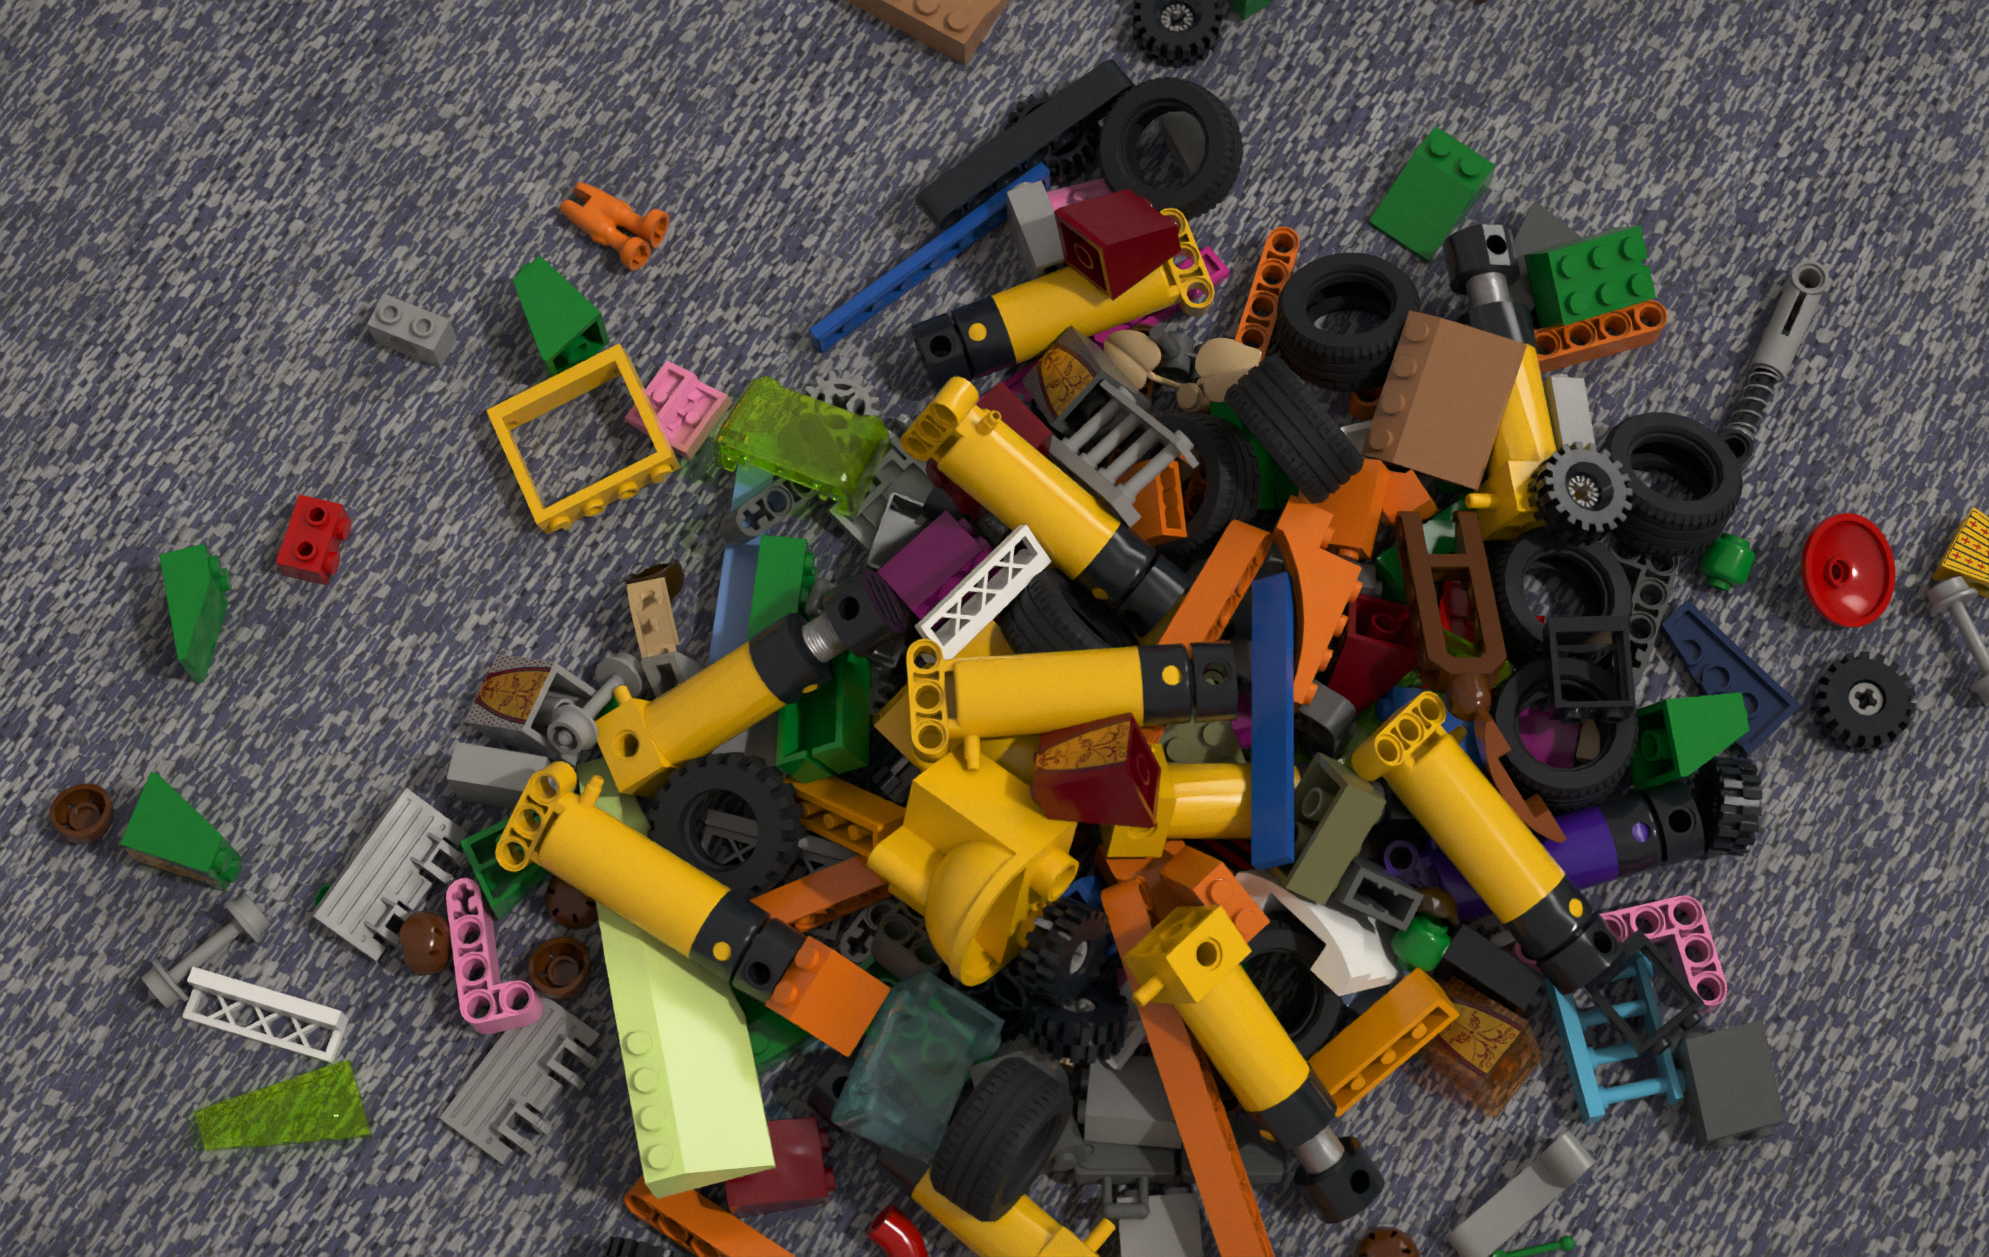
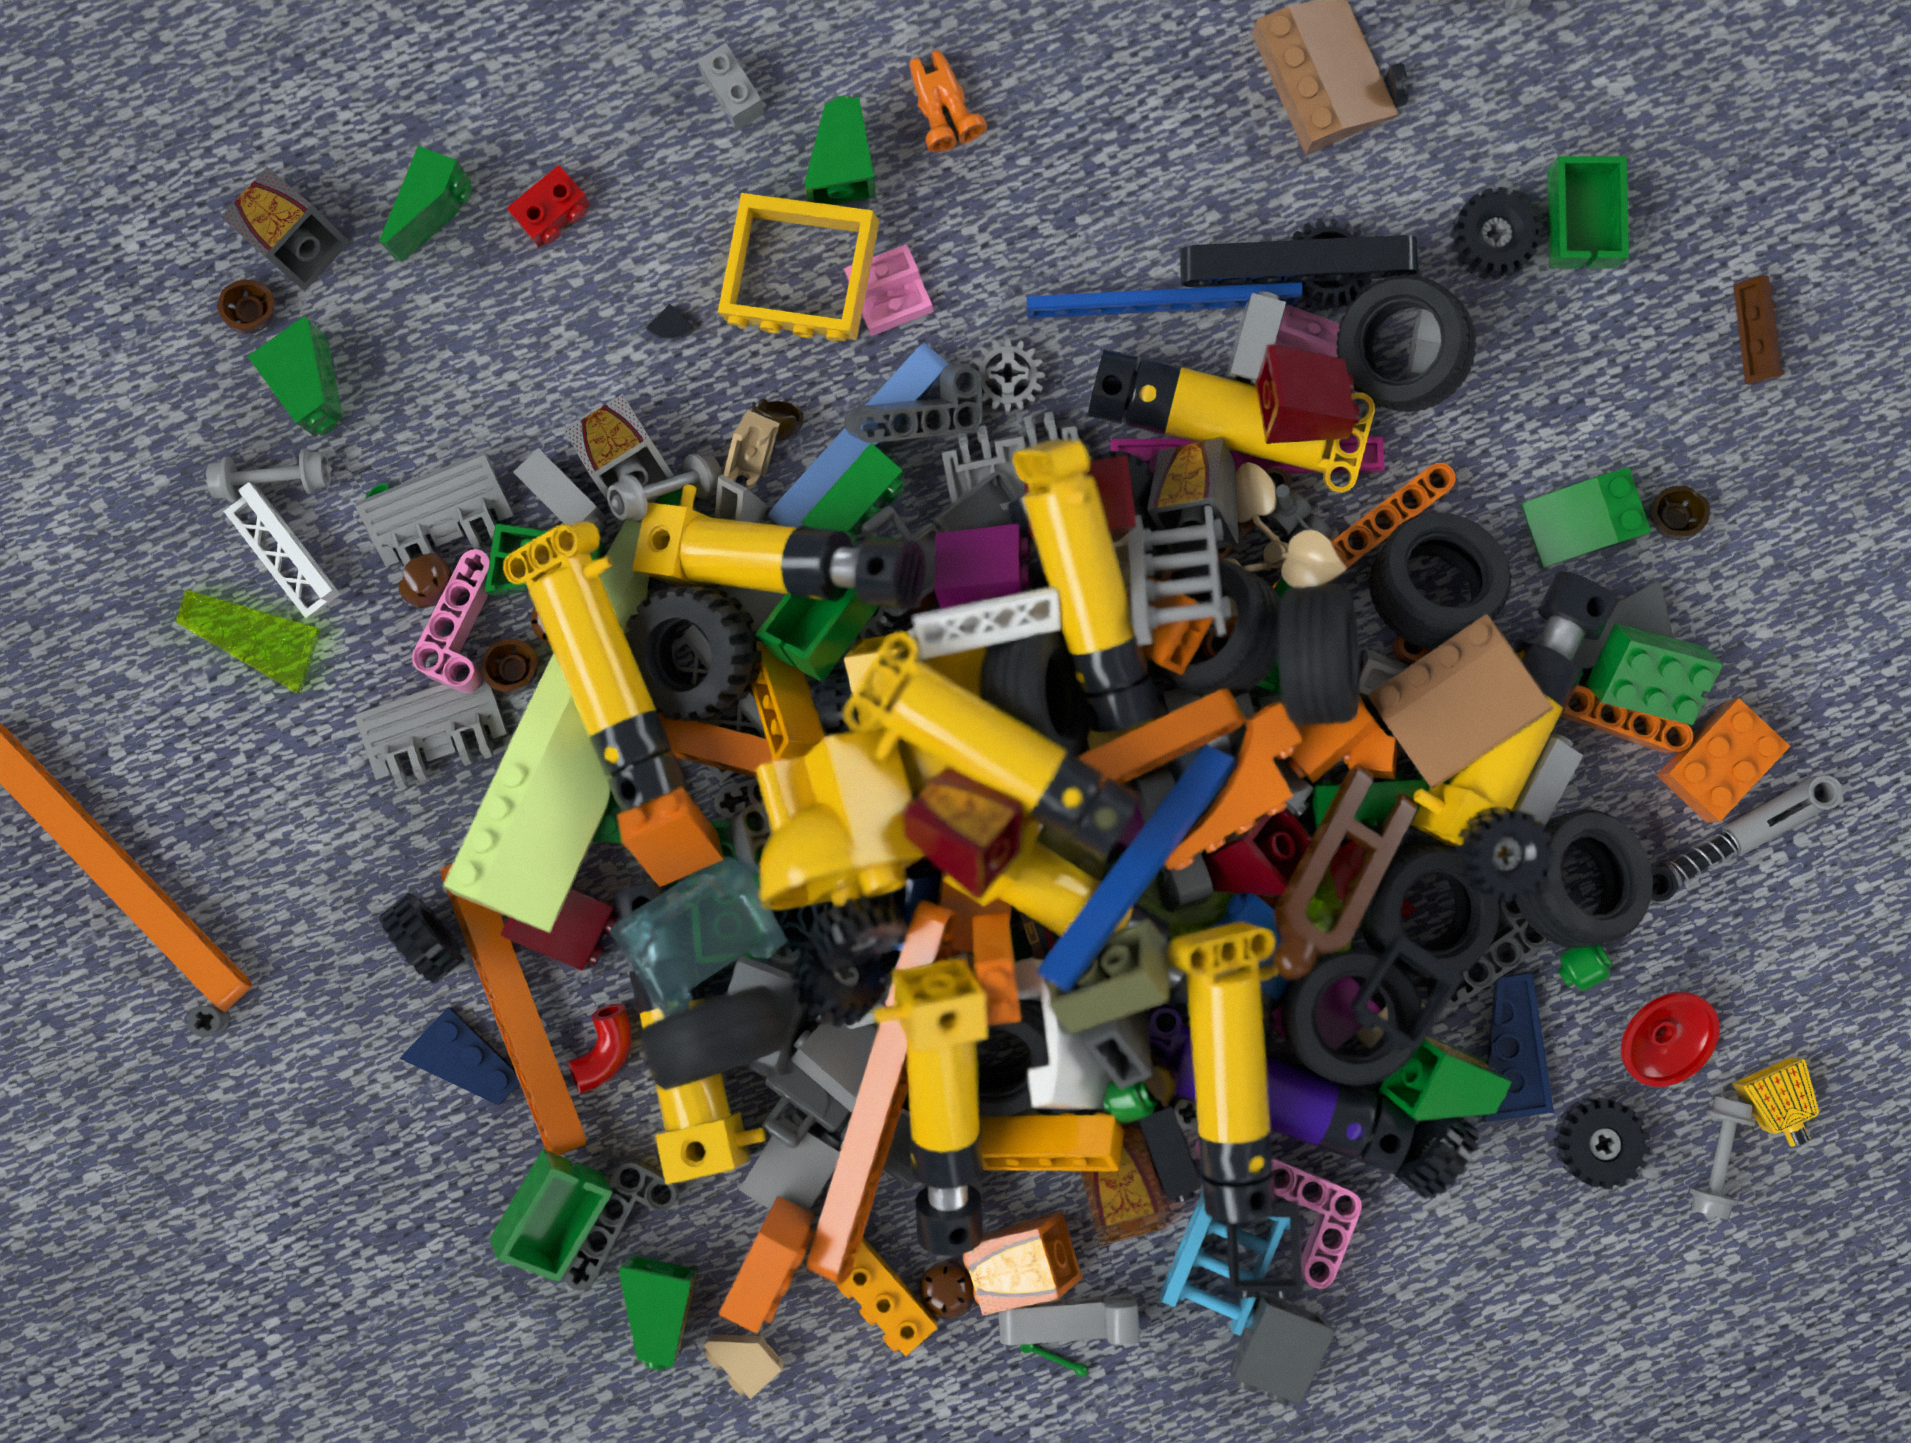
camera: 30 degrees right, 15 degrees up
(73, 719) = (285, 228): none -> dark grey slope
(498, 569) = (670, 325): none -> black tile
(802, 442) = (955, 388): clear neon green windscreen -> none
(1436, 1180) = (1023, 1264): none -> slope
(1506, 147) = (1674, 518): none -> dark brown helmet
(1532, 810) = (1282, 1064): dark orange slope -> none
(1705, 312) = (1723, 761): none -> orange brick

